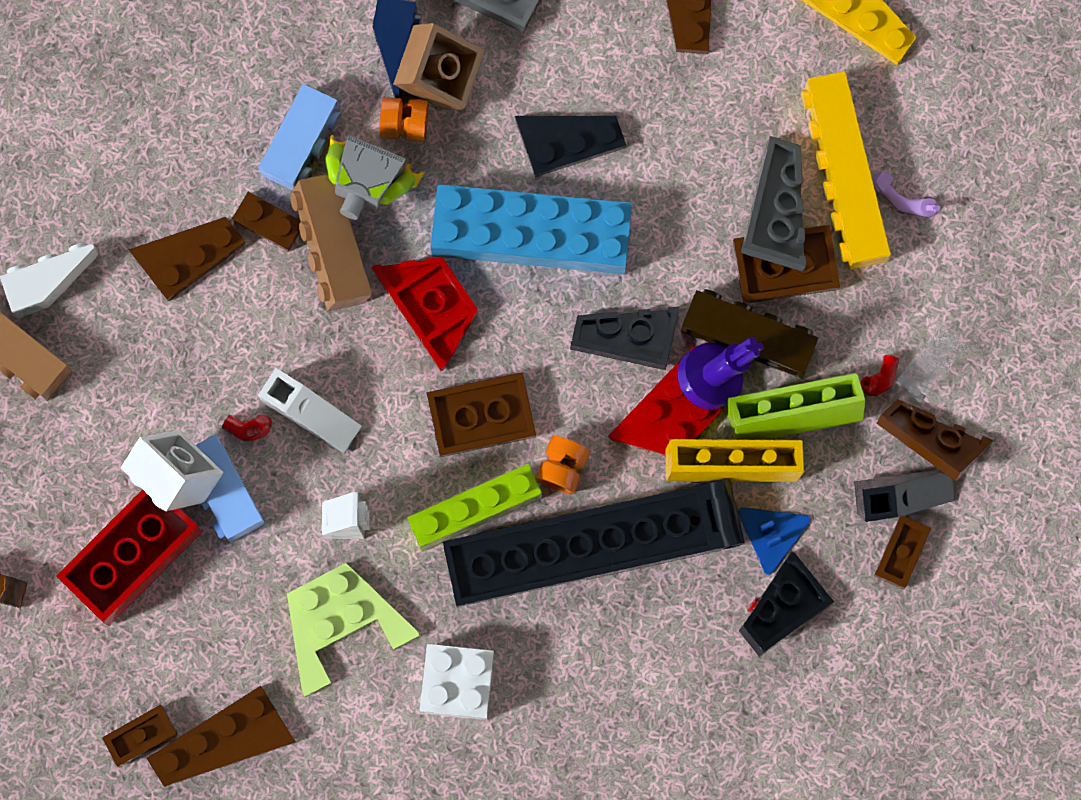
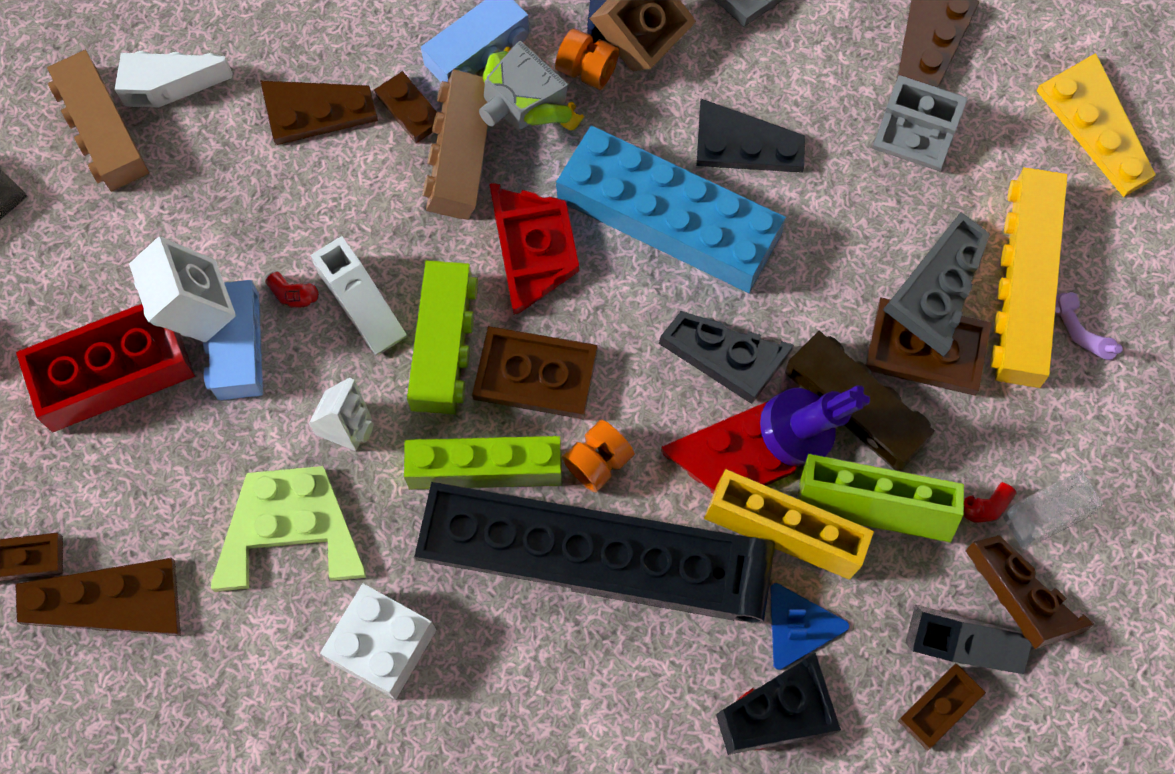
camera: 25 degrees right, 10 degrees down
(391, 416) = (440, 338): none -> lime brick
(707, 69) = (919, 123): none -> light grey brick

